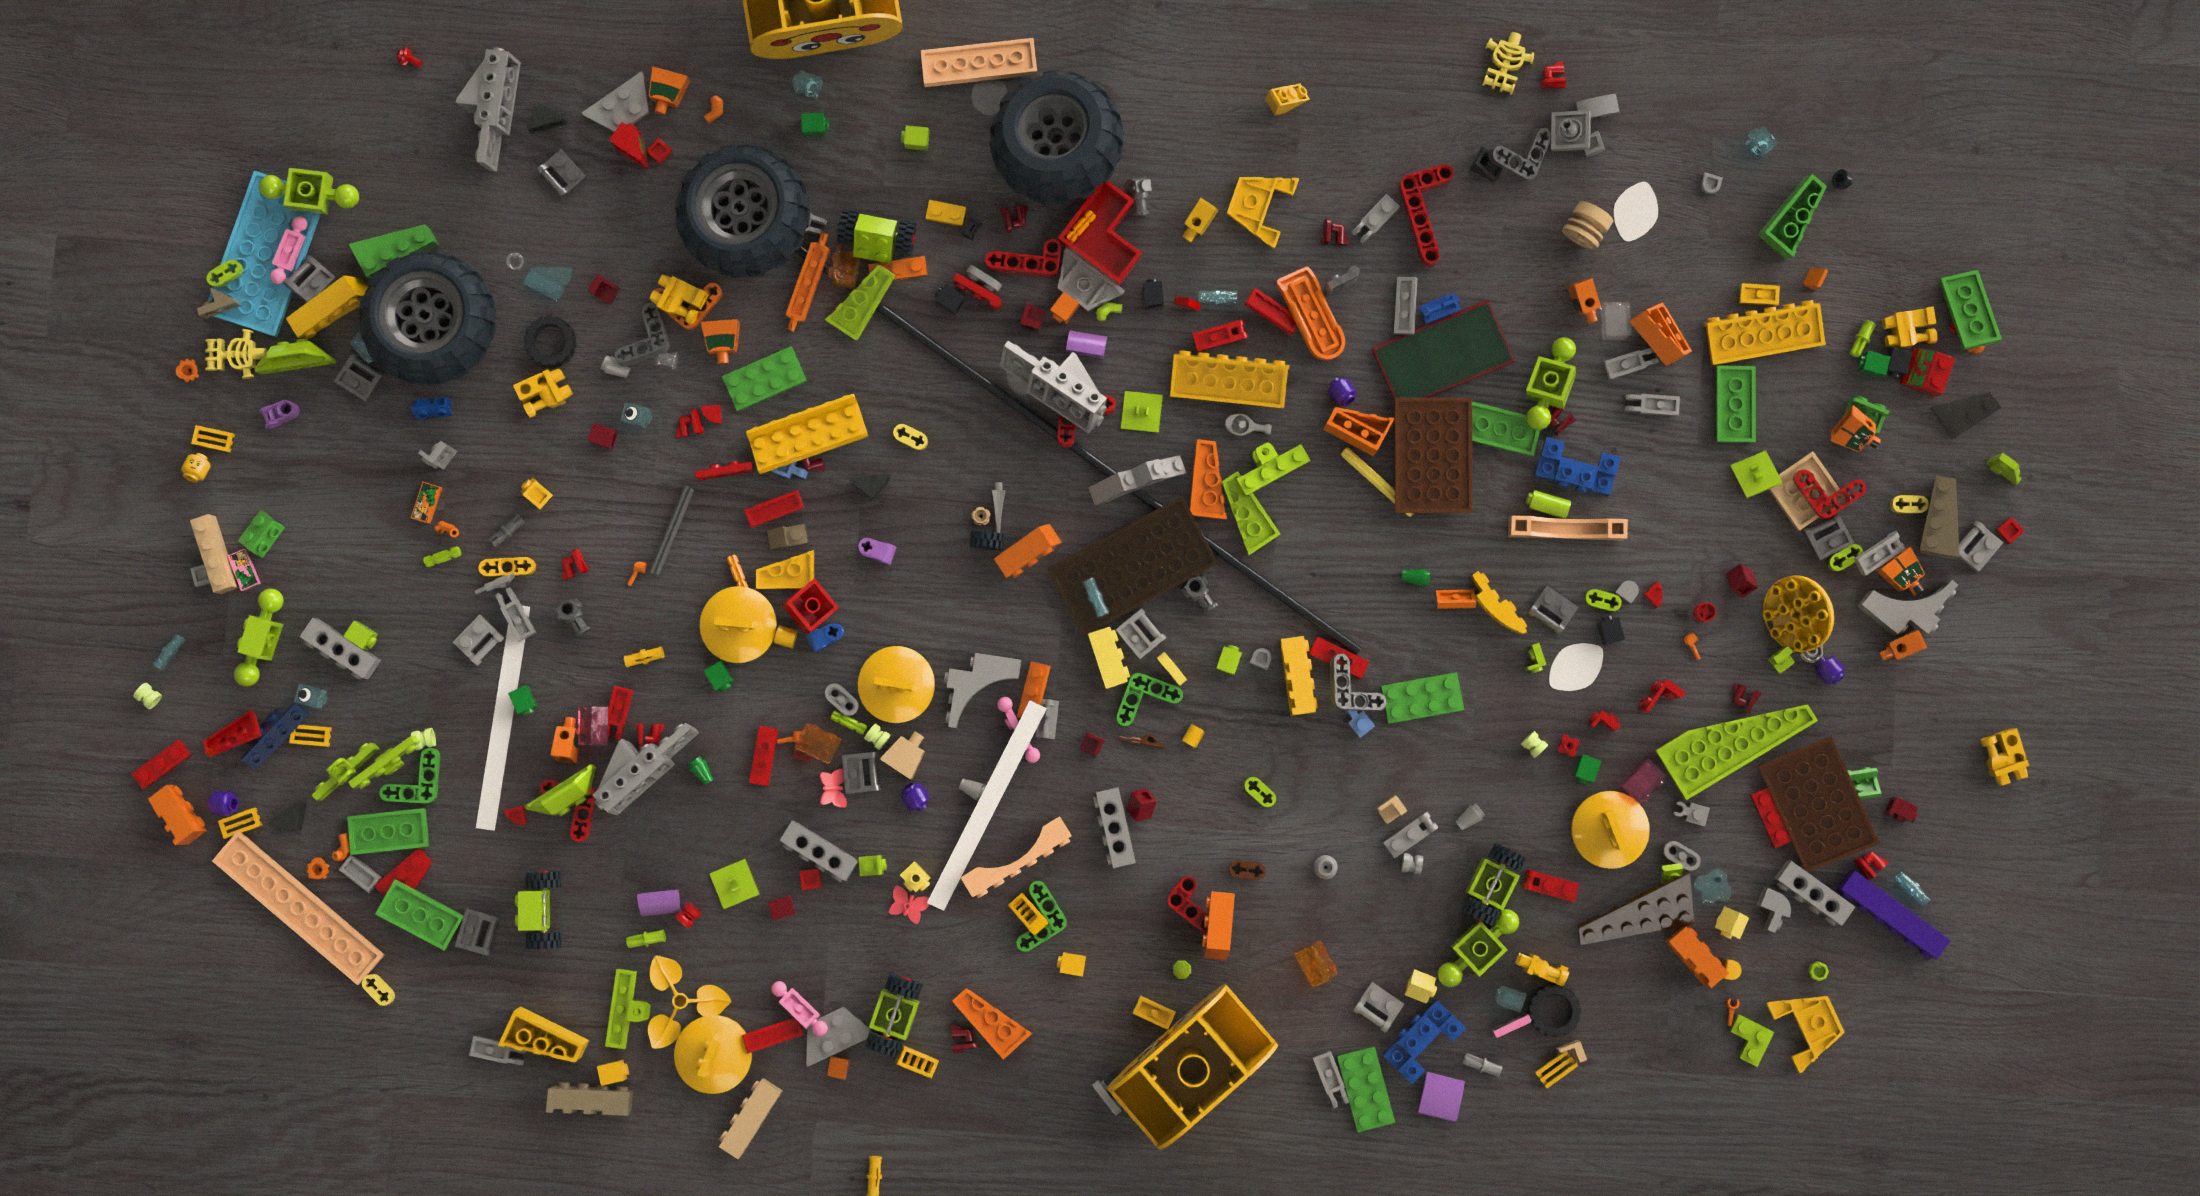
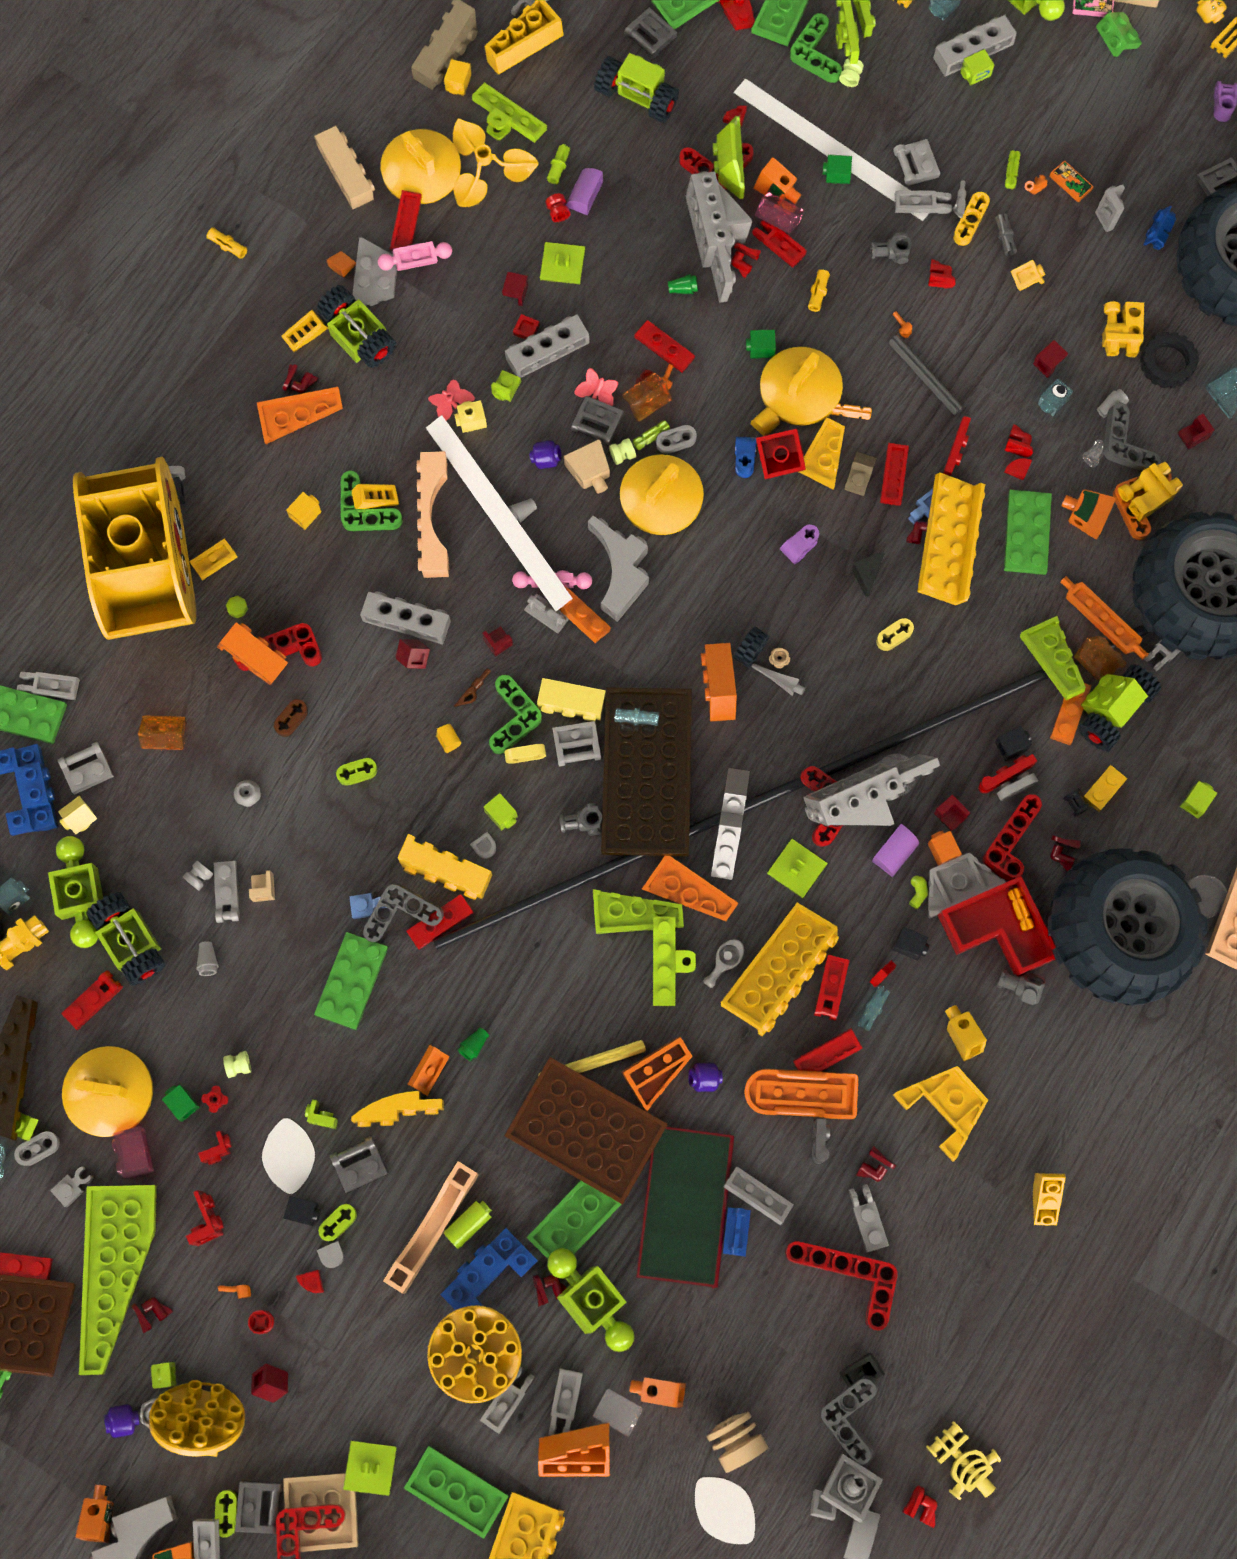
camera: 115 degrees right, 10 degrees down
(1639, 441) = (474, 1354): none -> yellow bracket

